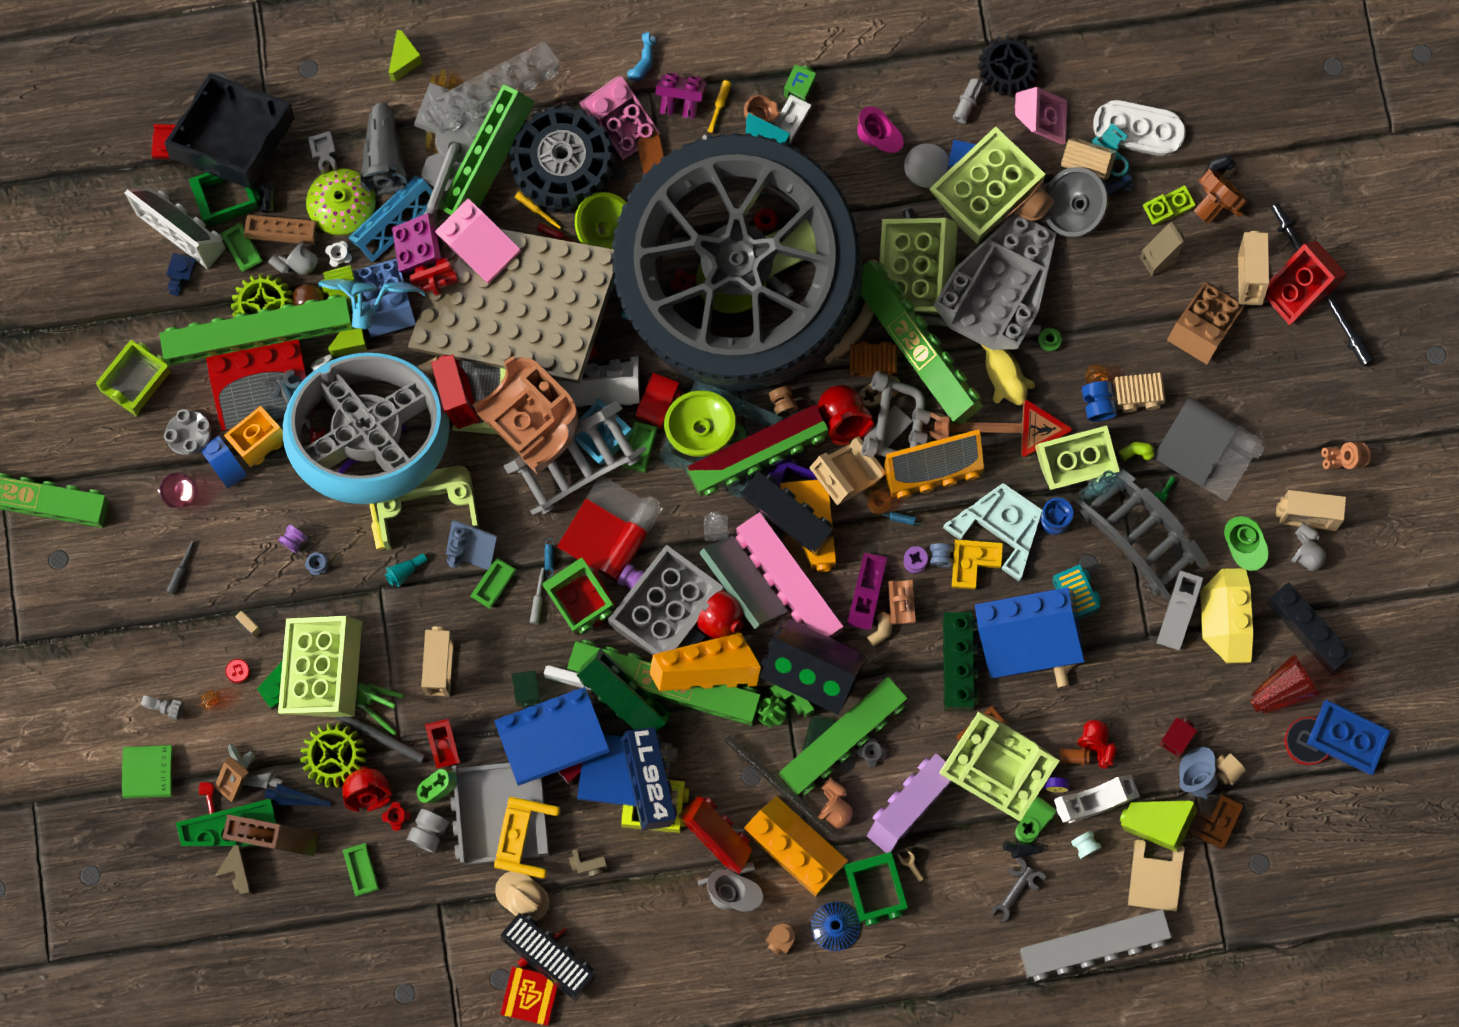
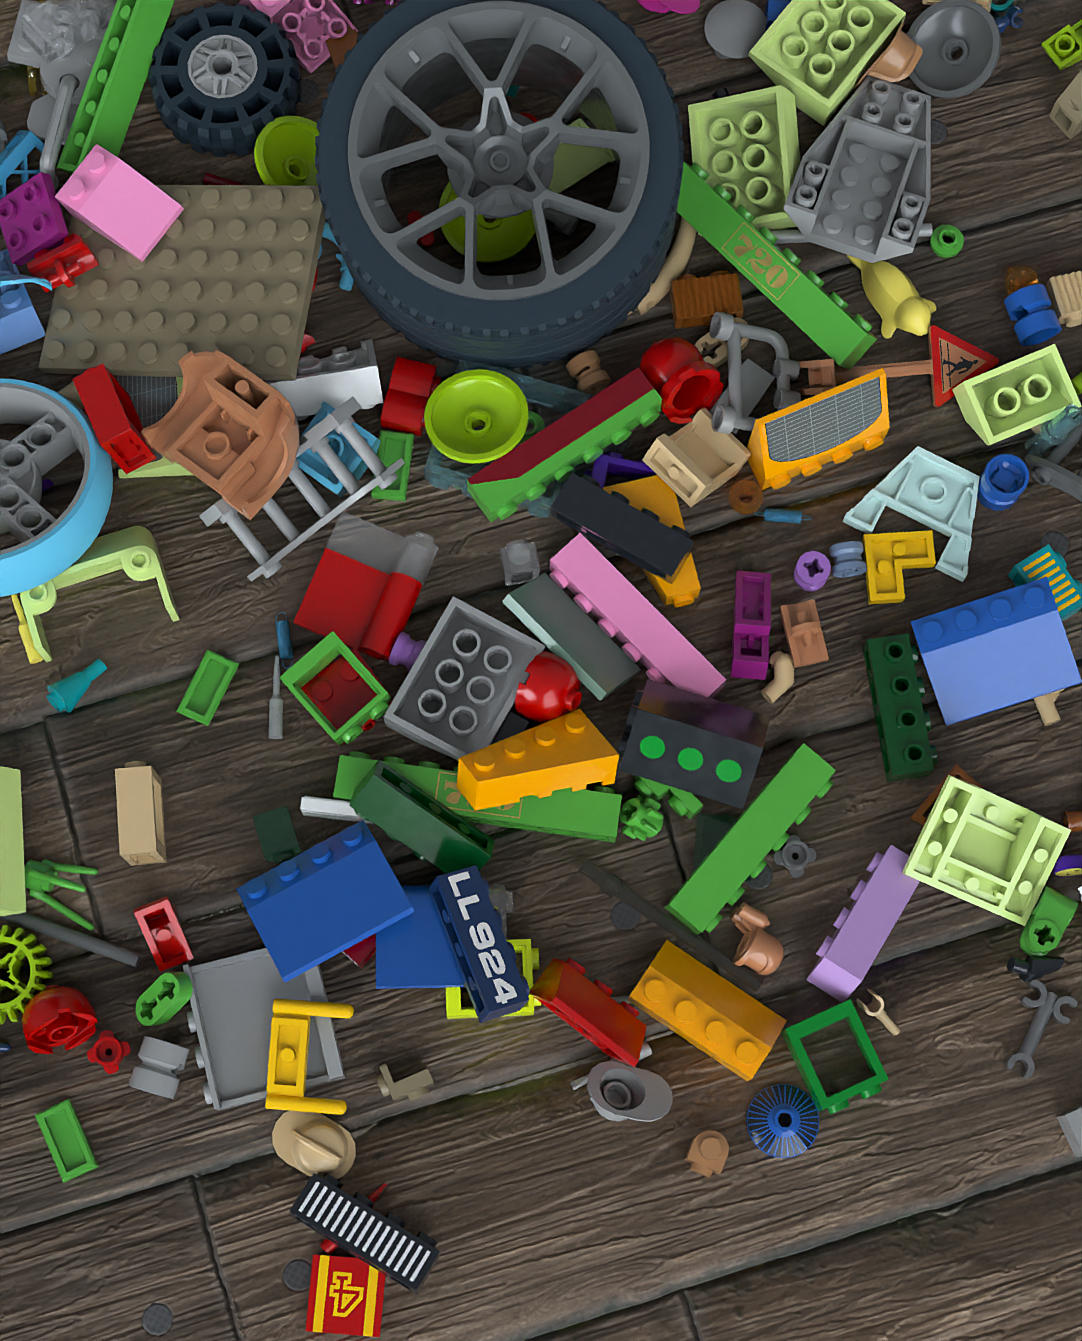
camera: 15 degrees left, 0 degrees up
(470, 546) = (166, 638): sand blue hinge -> none
(528, 203) = (197, 156): yellow piece -> none

